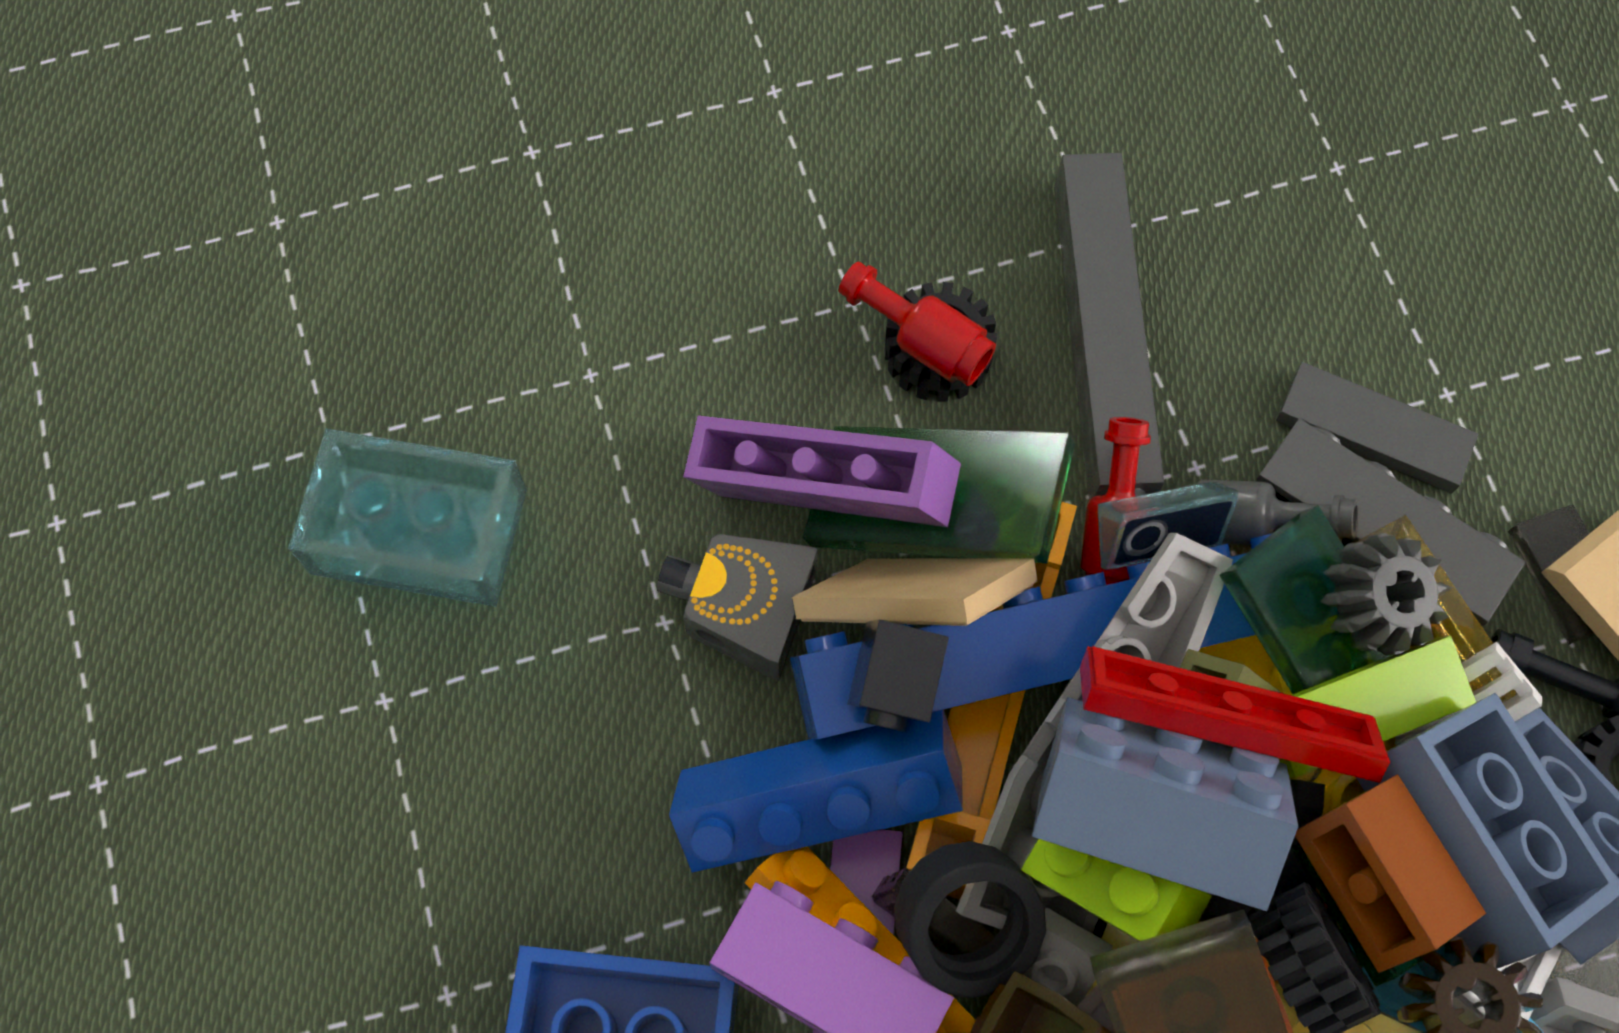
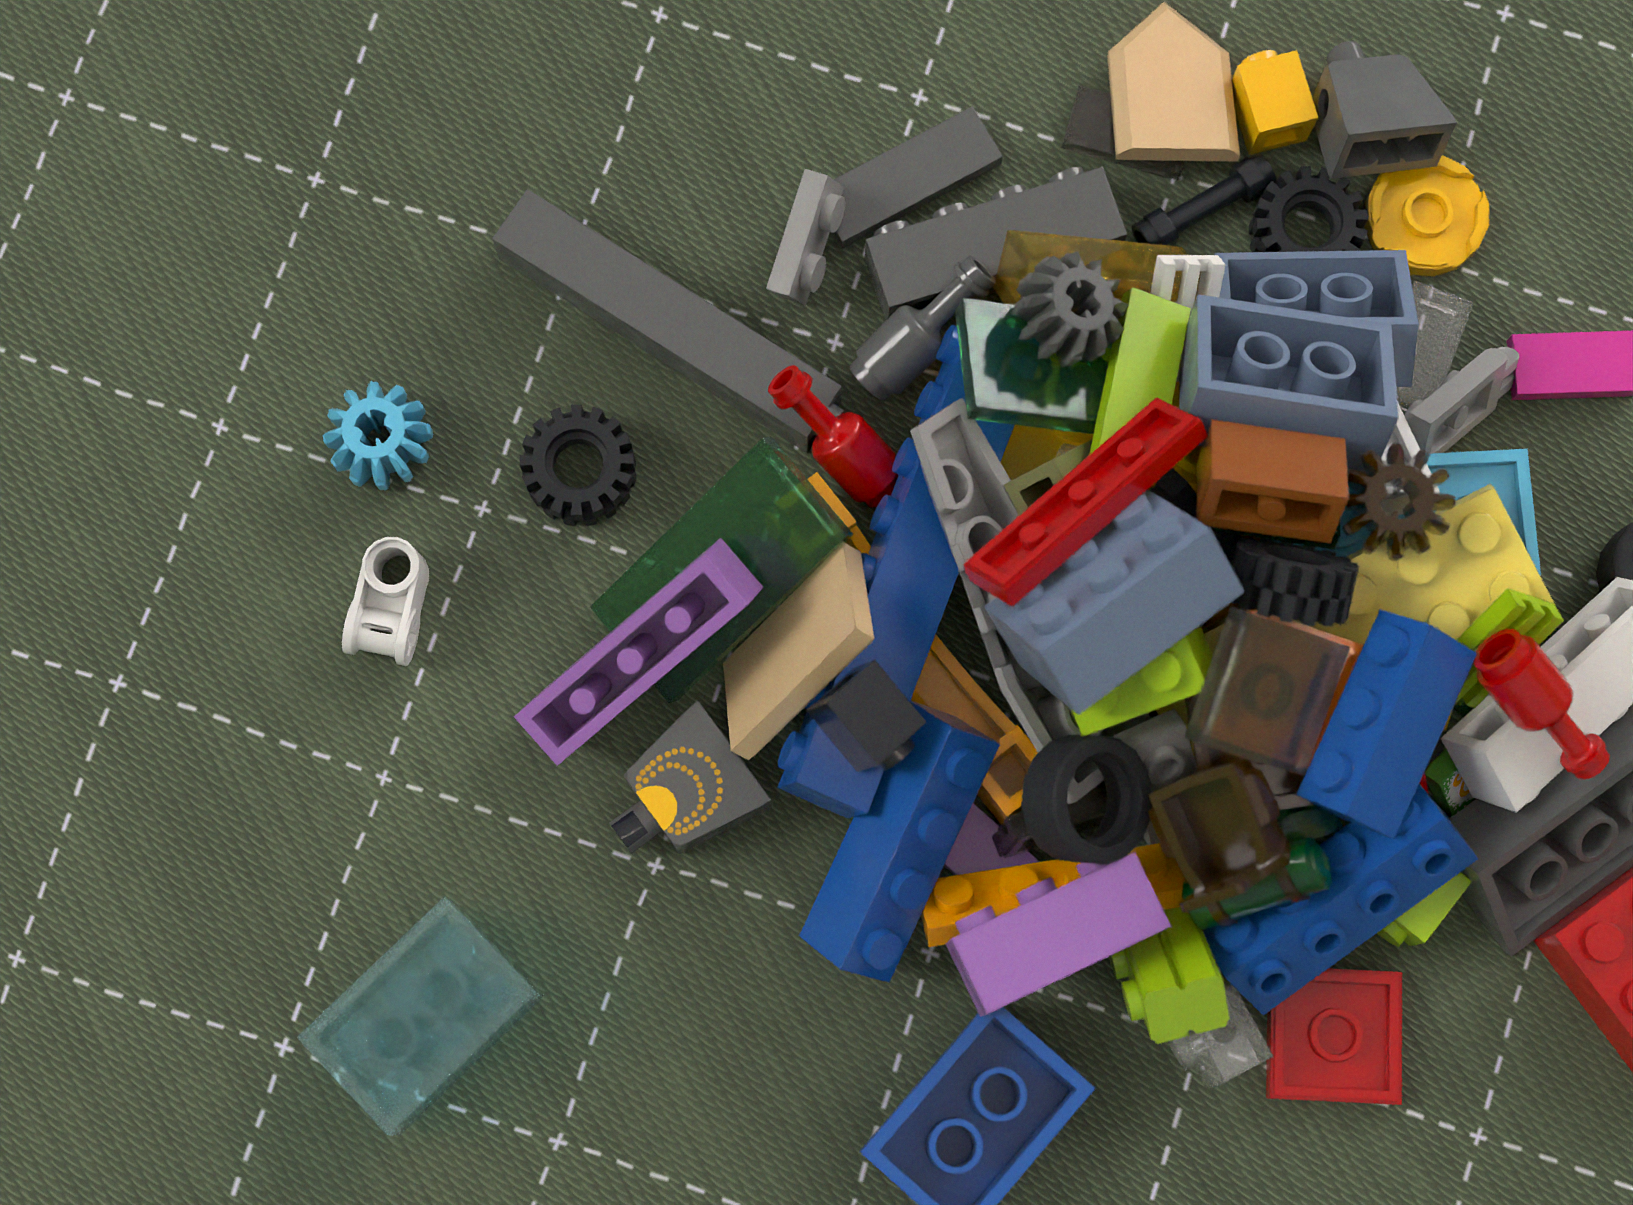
camera: 55 degrees left, 10 degrees up
(722, 279) = (386, 606): none -> white piece
(849, 188) = (371, 413): none -> medium azure gear
(928, 330) = (576, 472): red piece -> none
(1138, 525) = (879, 415): slope -> none
(1260, 376) = (814, 215): none -> light grey plate

